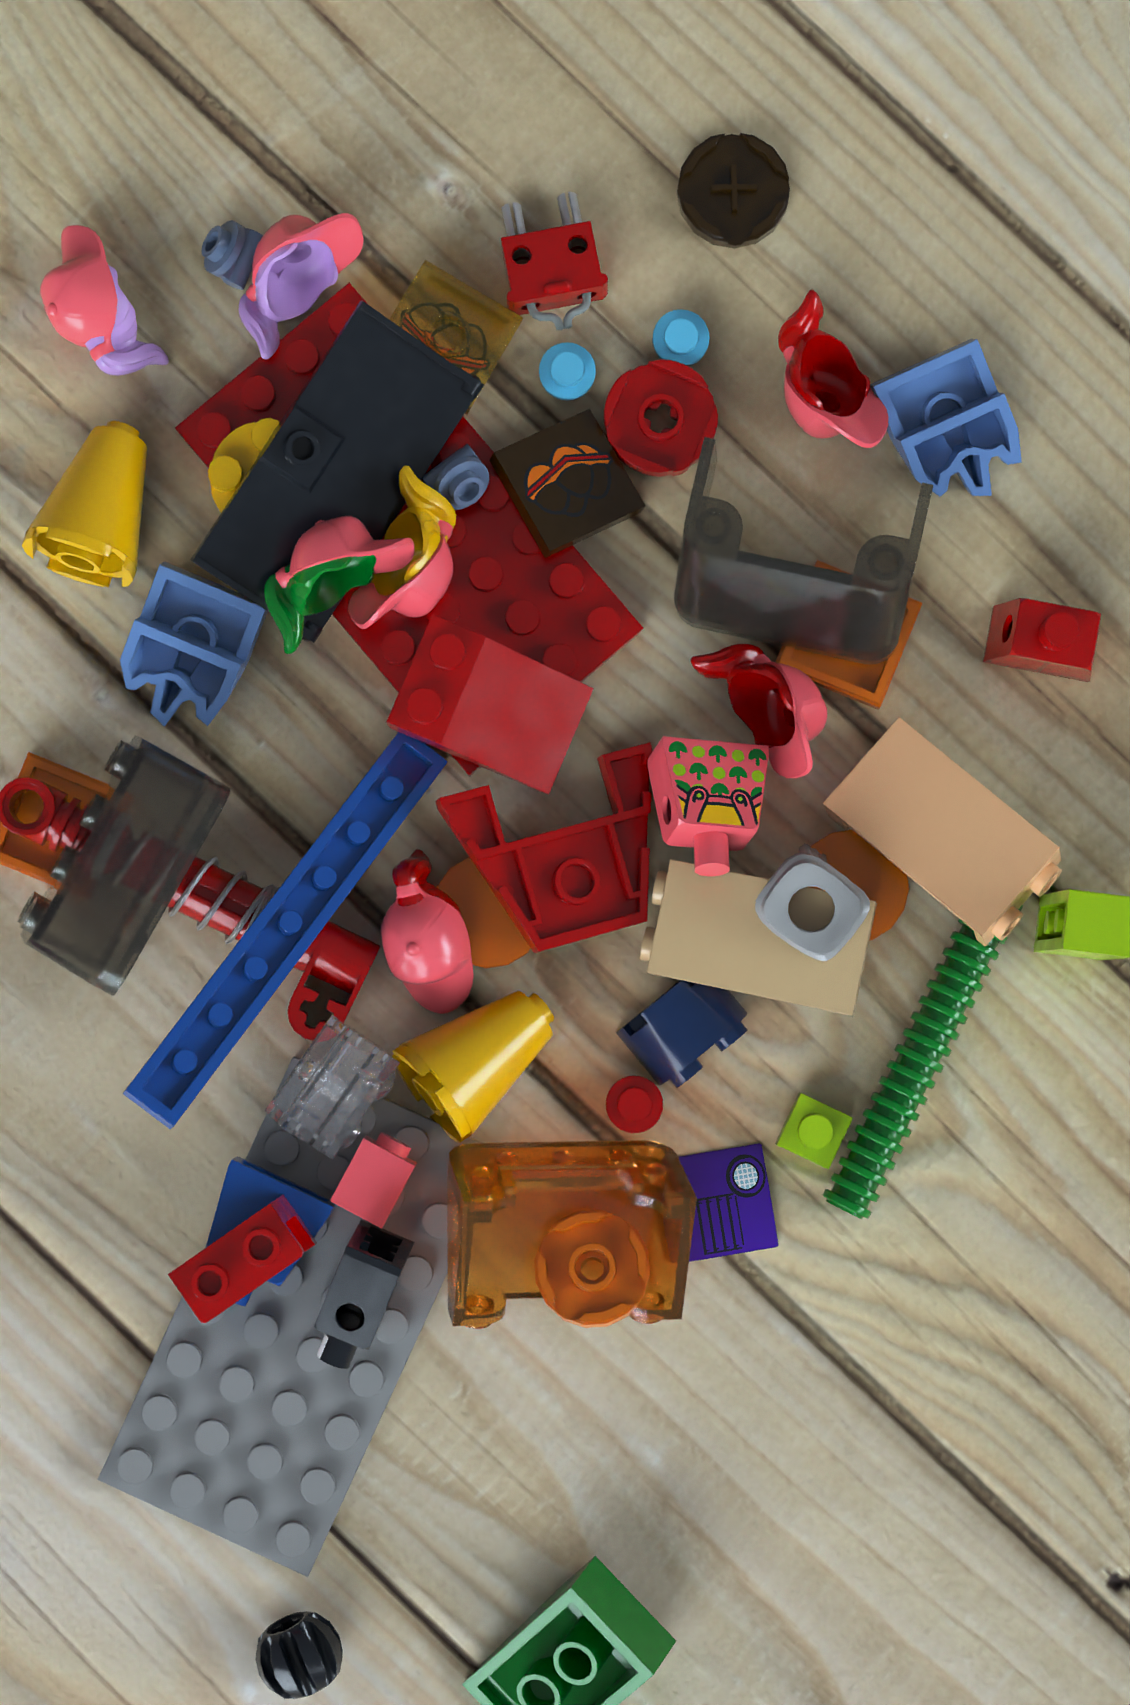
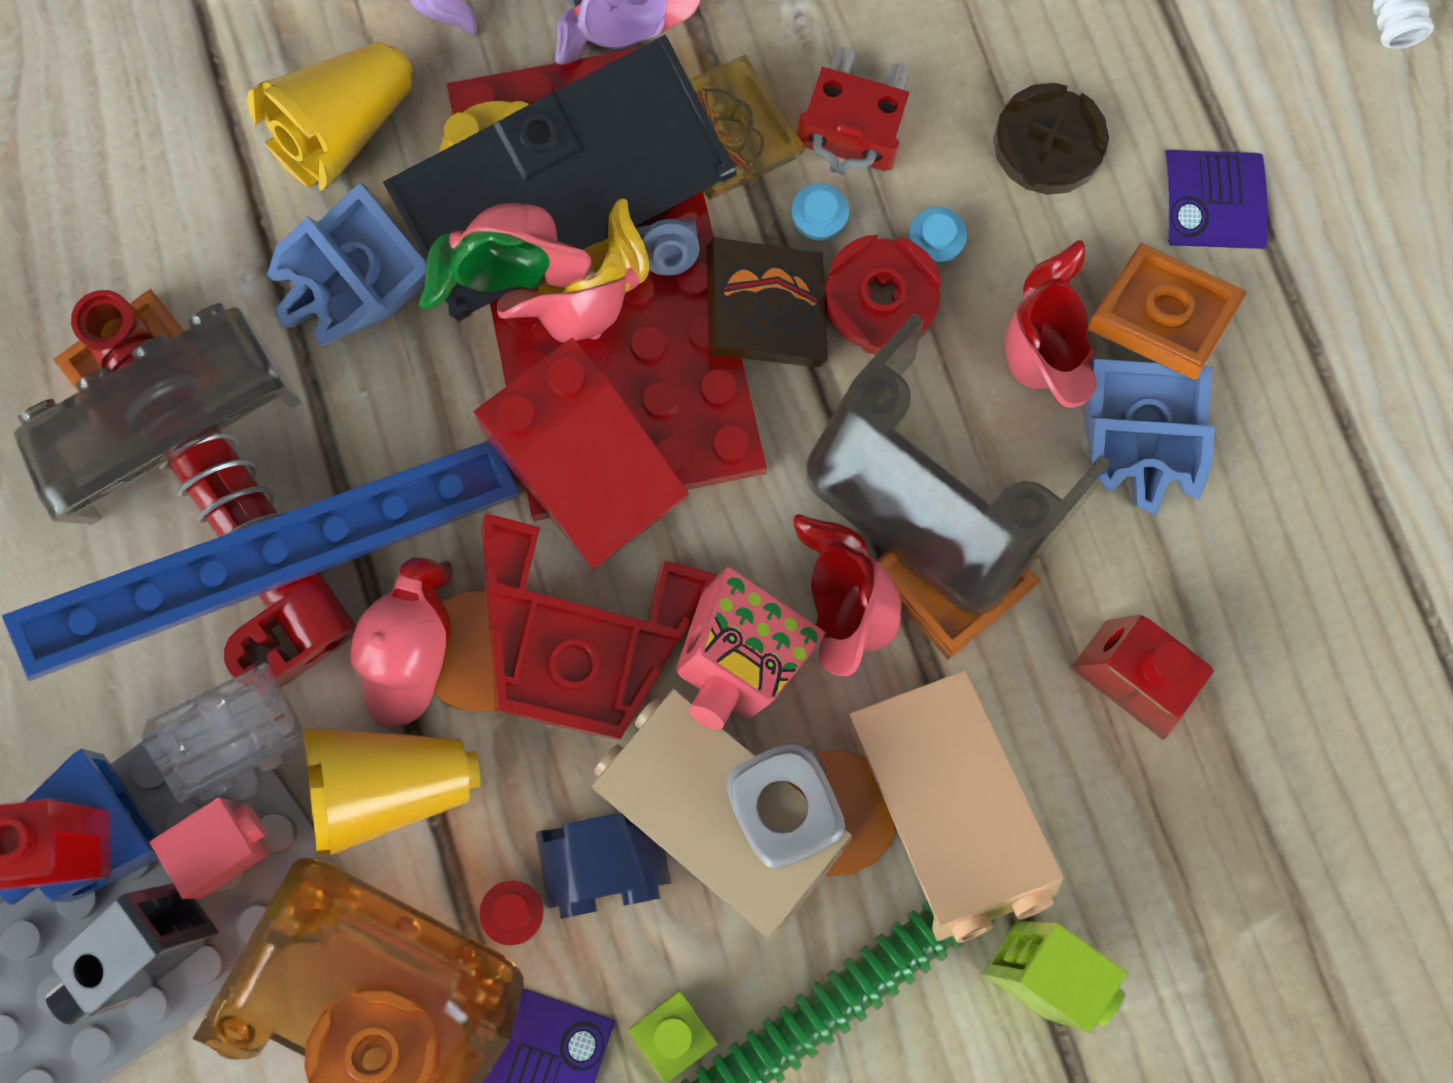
camera: 30 degrees right, 10 degrees down
(907, 167) = (1217, 199): none -> dark purple sticker
(914, 306) = (1167, 311): none -> orange tile

